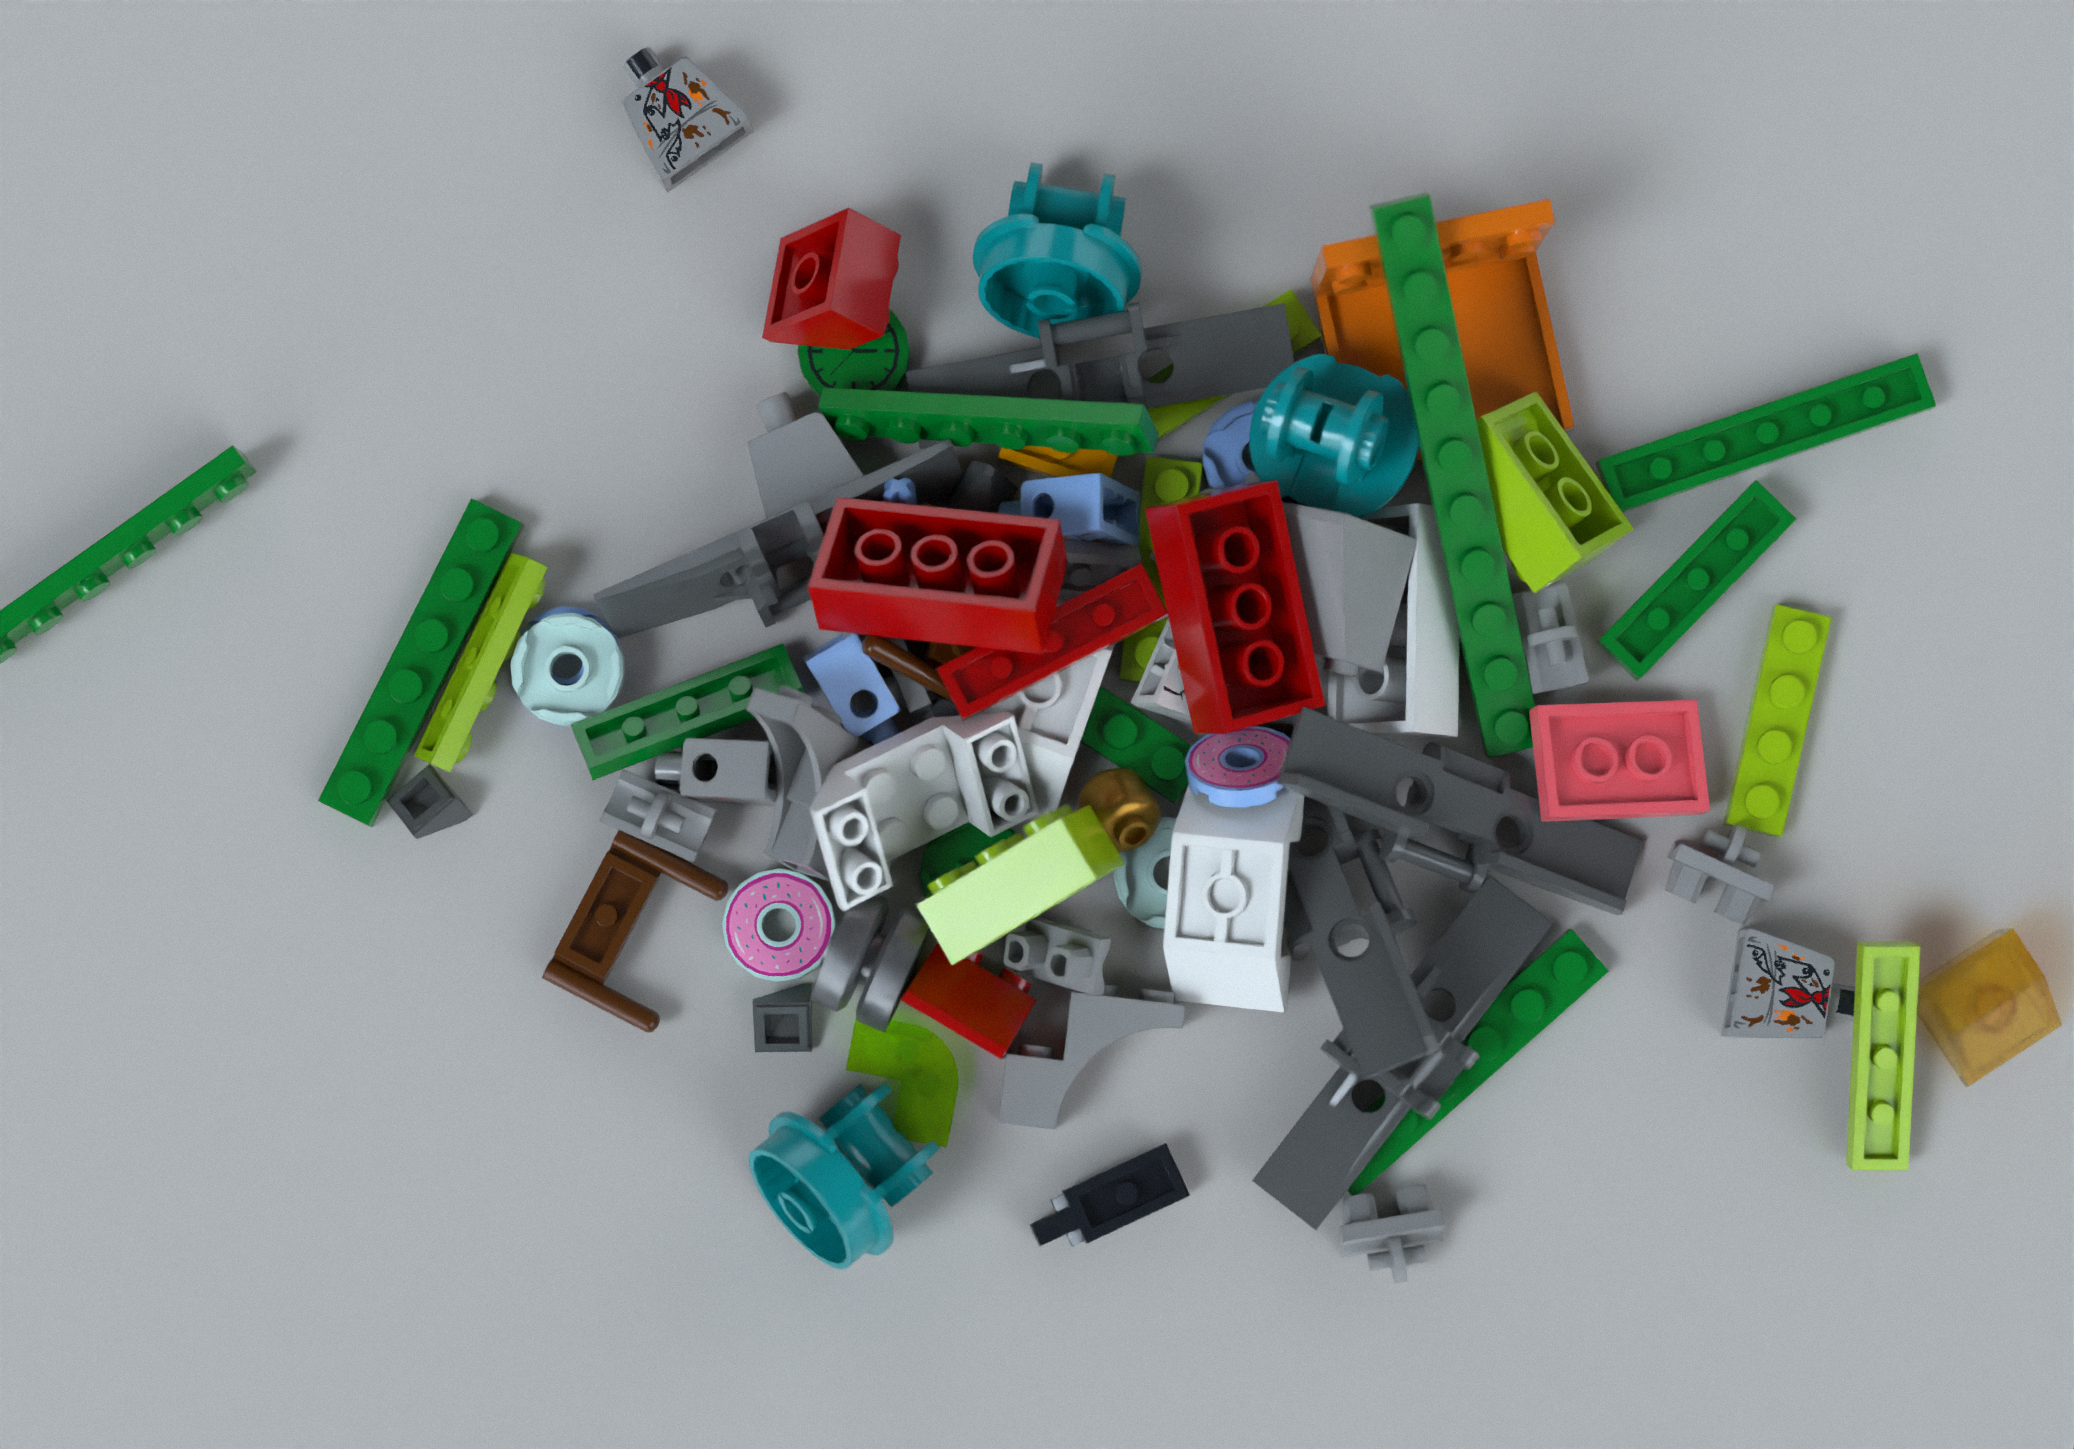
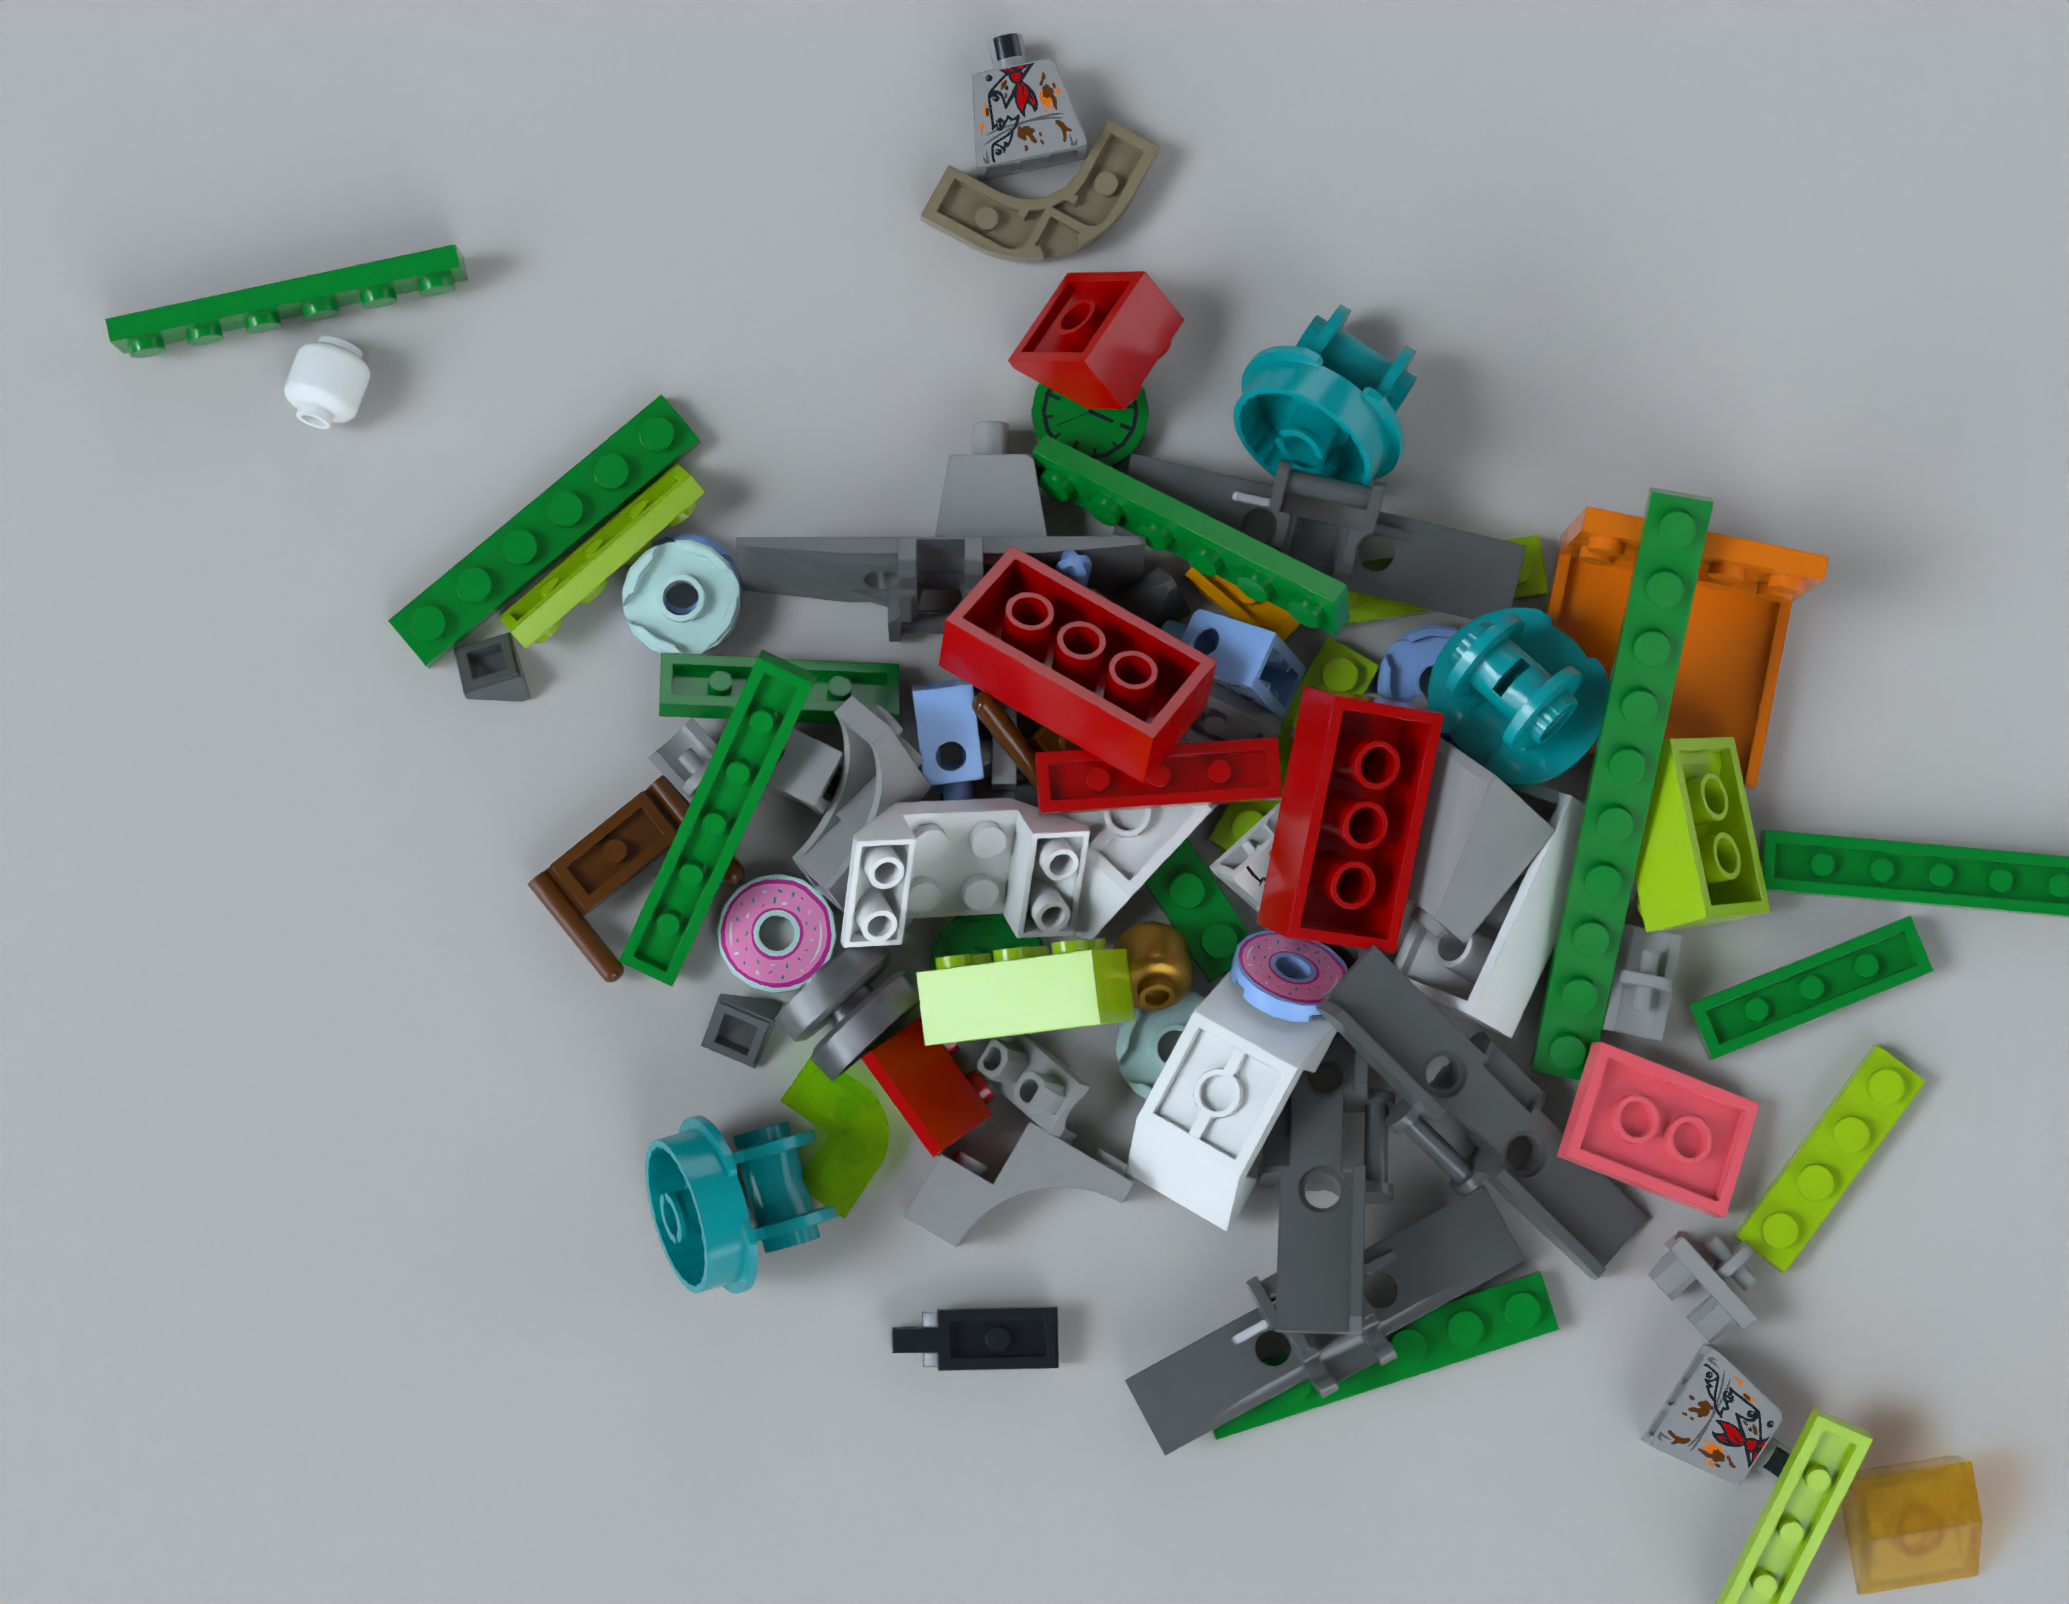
camera: 20 degrees right, 0 degrees up
(172, 615) = (327, 382): none -> white head
(683, 846) = (717, 817): none -> green plate
(746, 204) = (1047, 225): none -> dark tan plate
(1415, 1225) = (1262, 1493): light grey hips -> none

